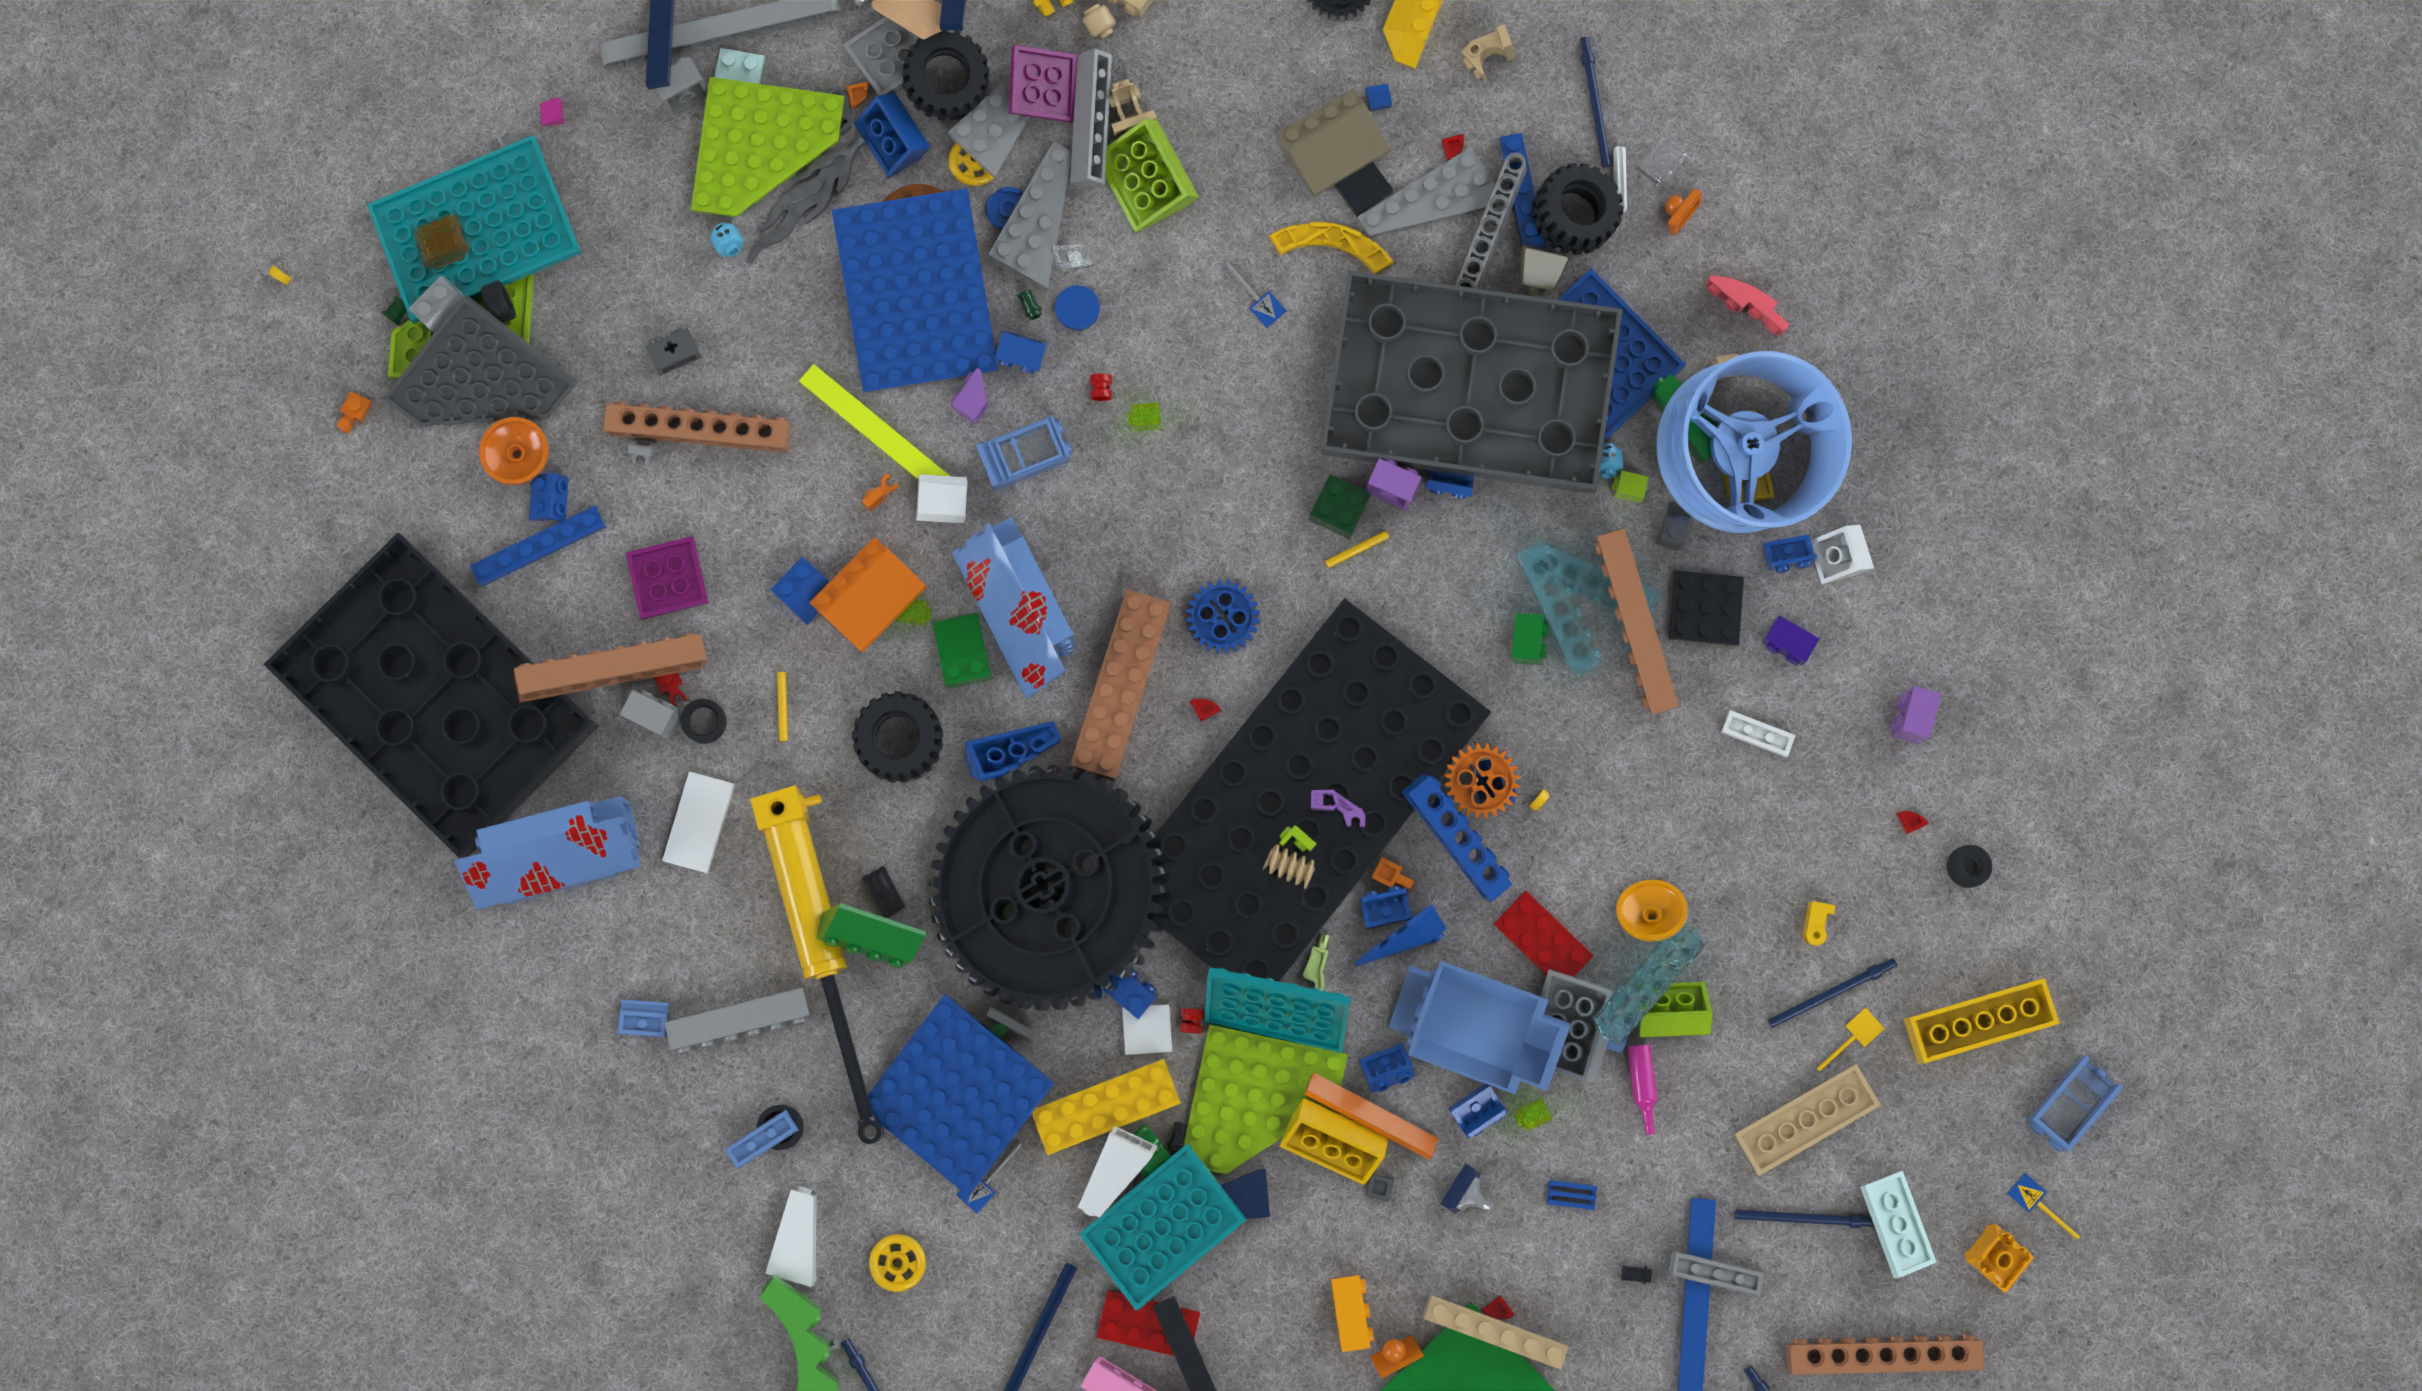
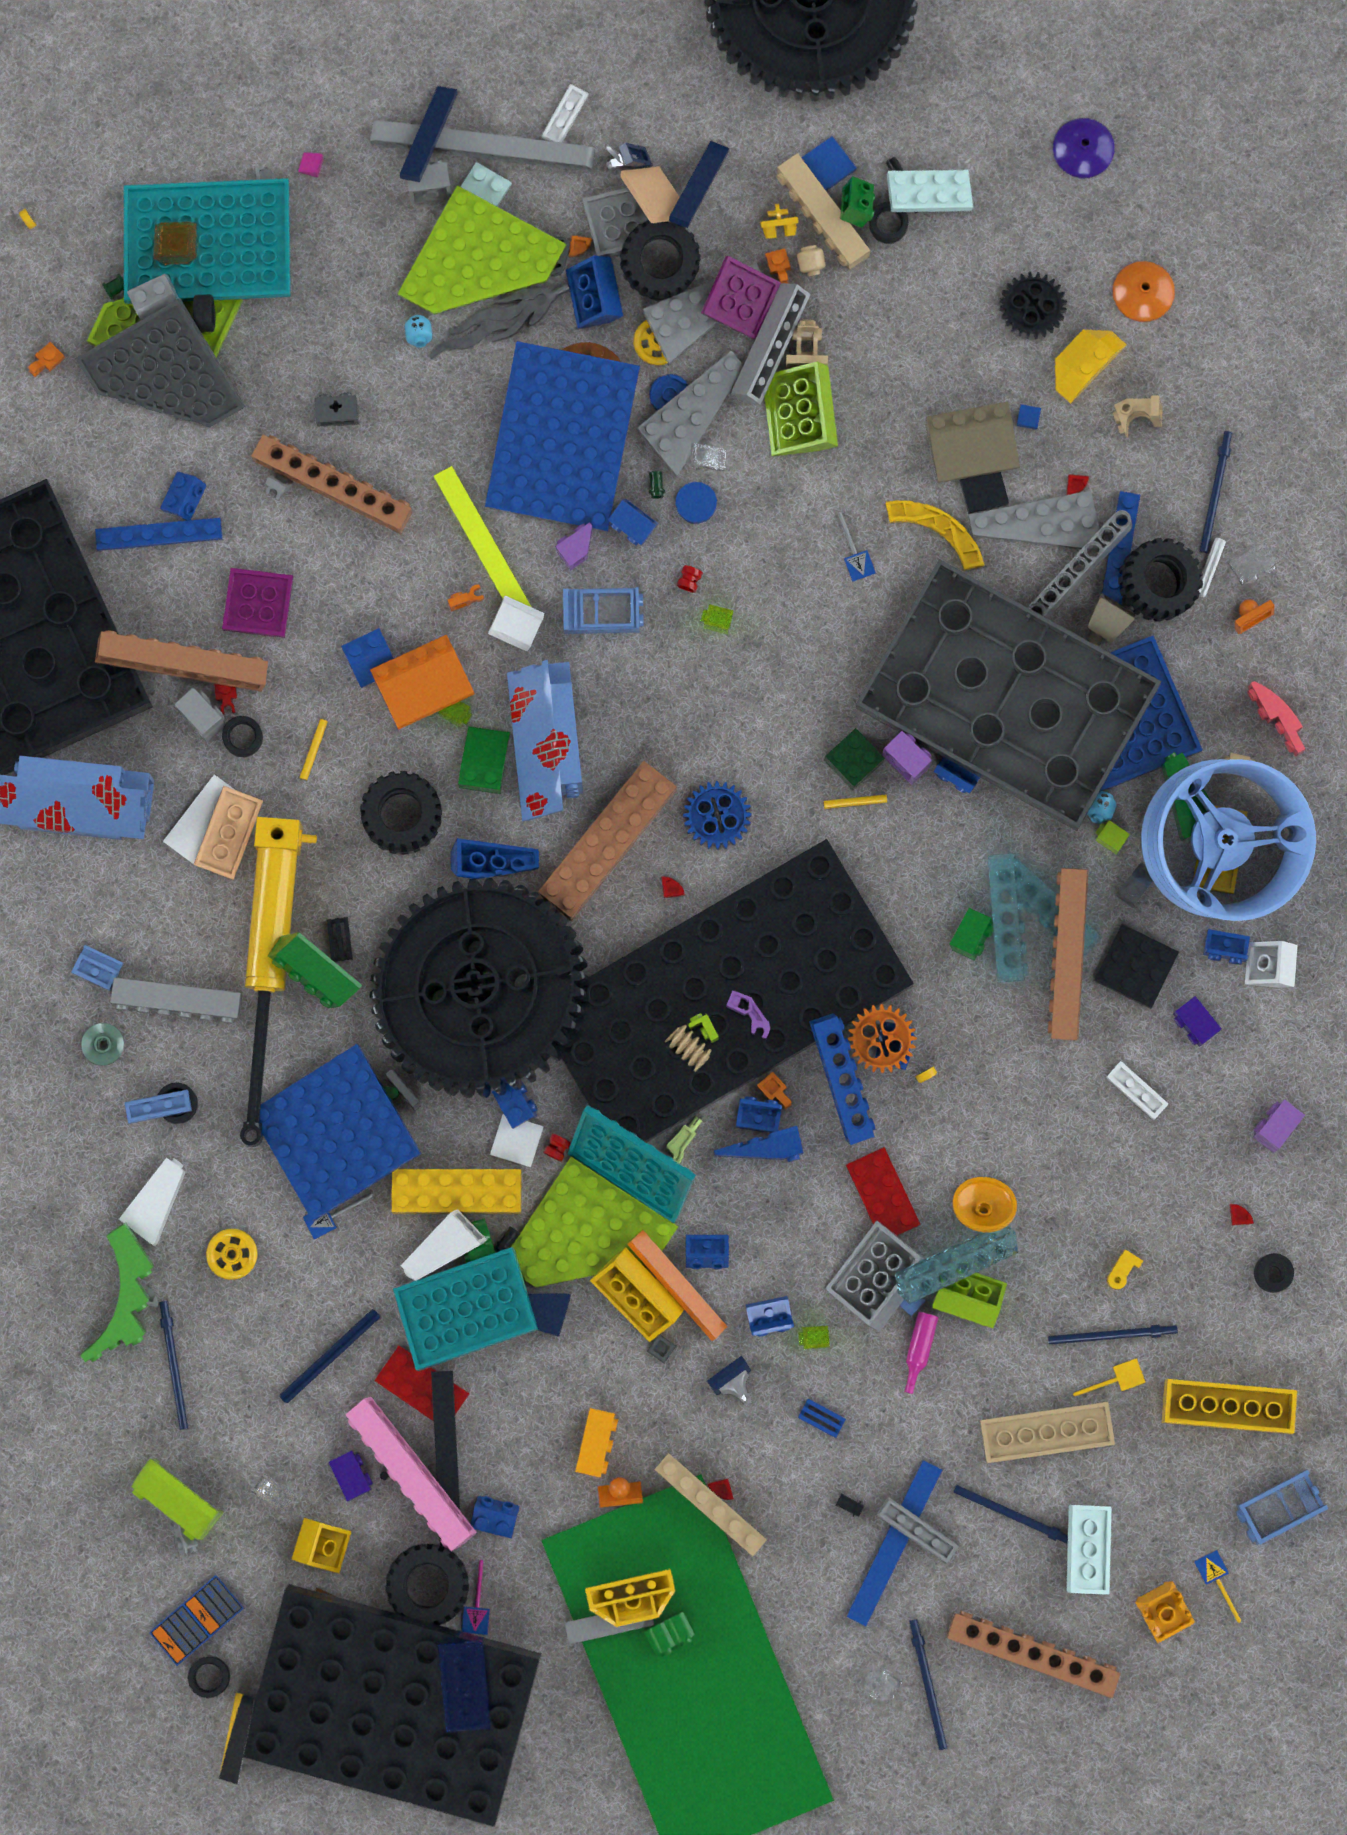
camera: 20 degrees right, 0 degrees up
(502, 442) = (167, 432): orange dish -> none
(667, 1096) = (91, 1044): none -> sand green dish
(726, 826) = (228, 832): none -> light nougat tile
(1067, 37) = (778, 264): none -> orange plate
(1479, 1027) = (797, 1246): medium blue panel -> none

